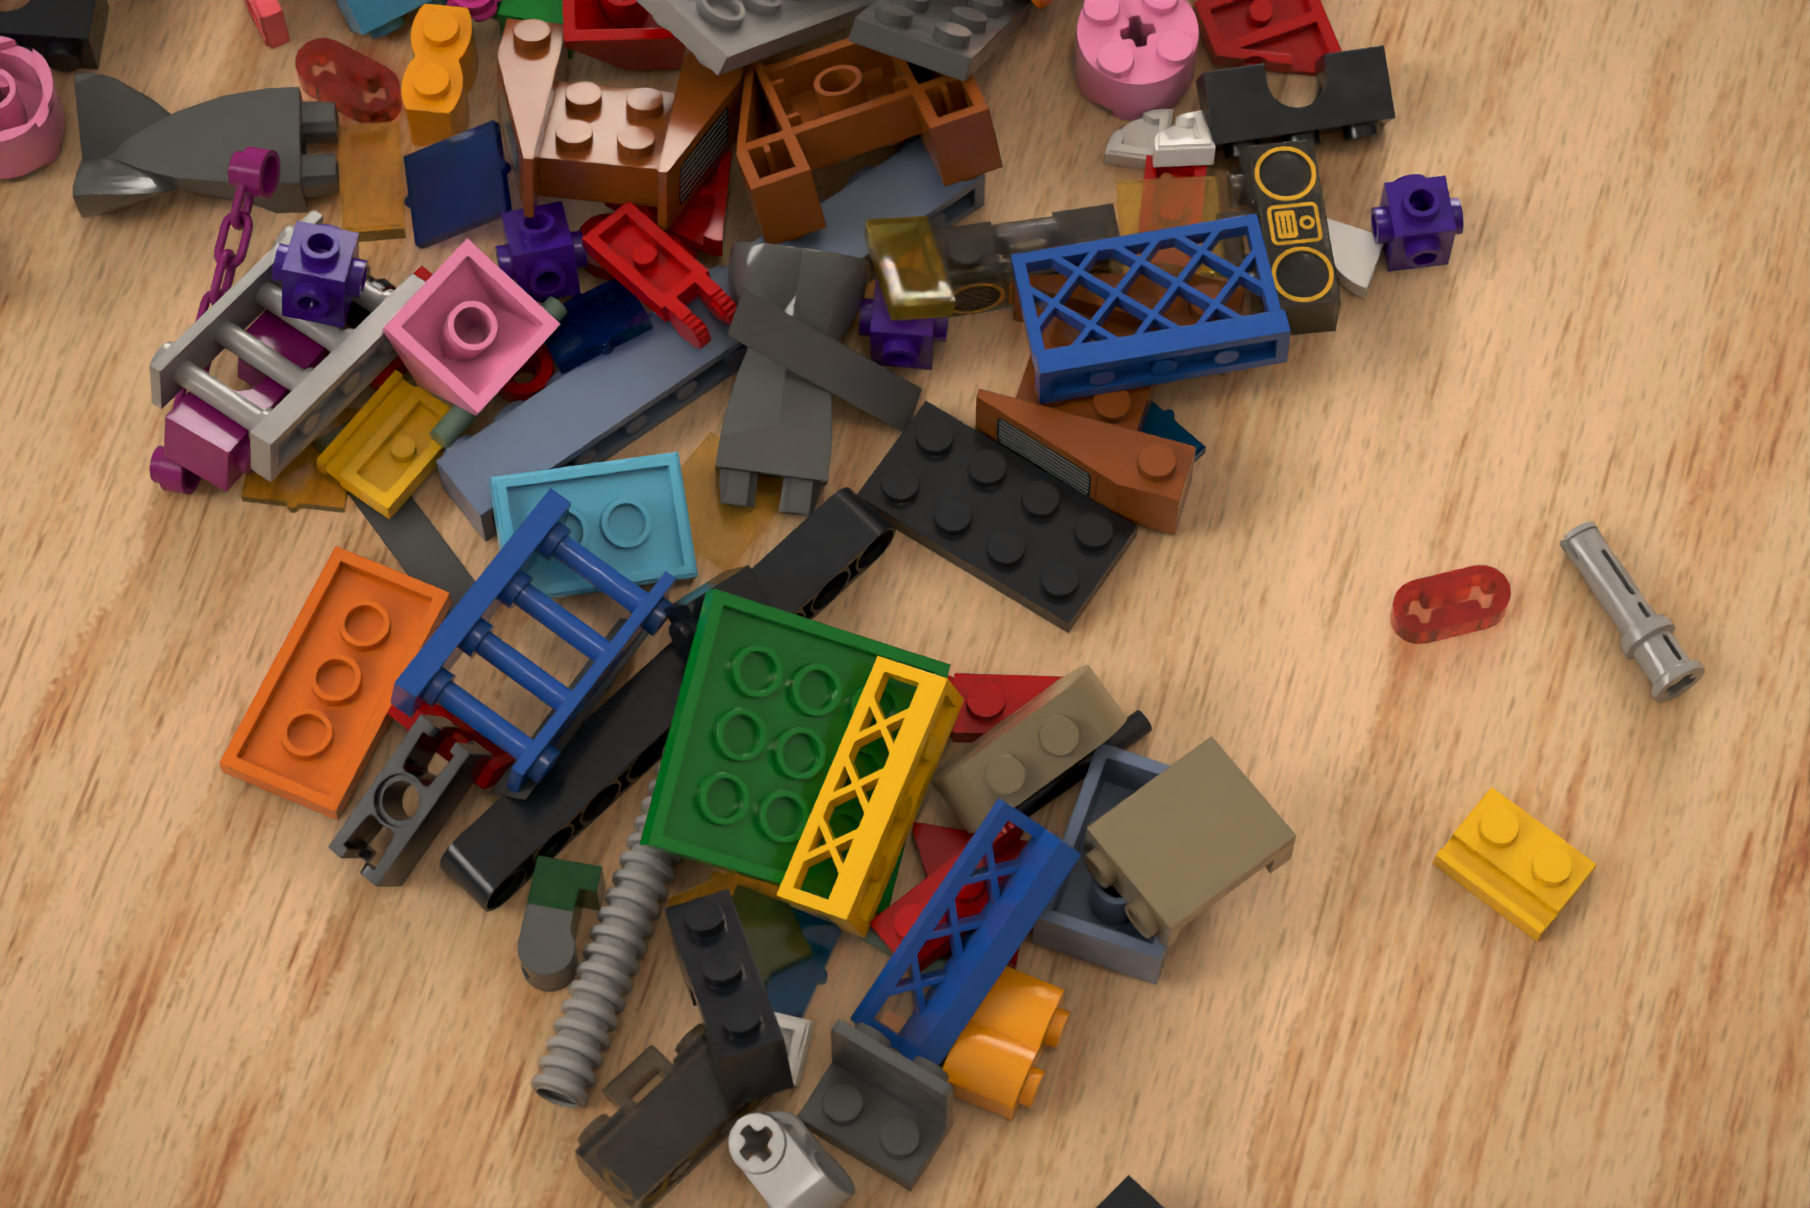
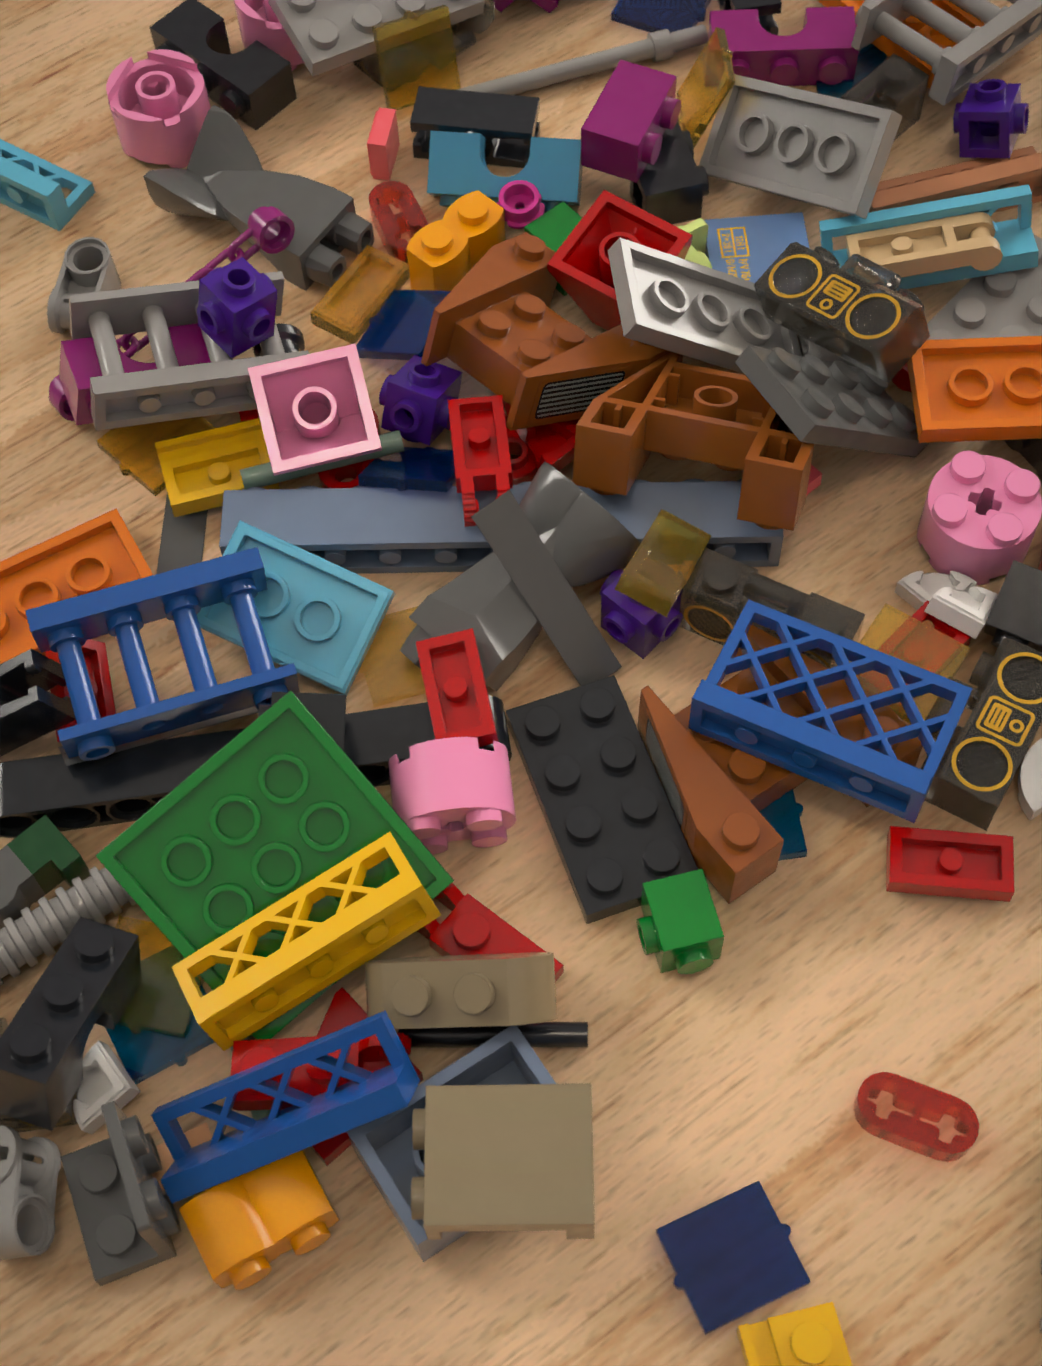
camera: 40 degrees right, 5 degrees down
(99, 359) = (85, 269): none -> light grey piece
(820, 503) = (456, 687): none -> red plate
(885, 589) = (454, 792): none -> bright pink brick
(1153, 576) = (680, 923): none -> green brick
(1330, 378) = (950, 863): none -> red plate
(1389, 811) = (732, 1257): none -> clear blue piece

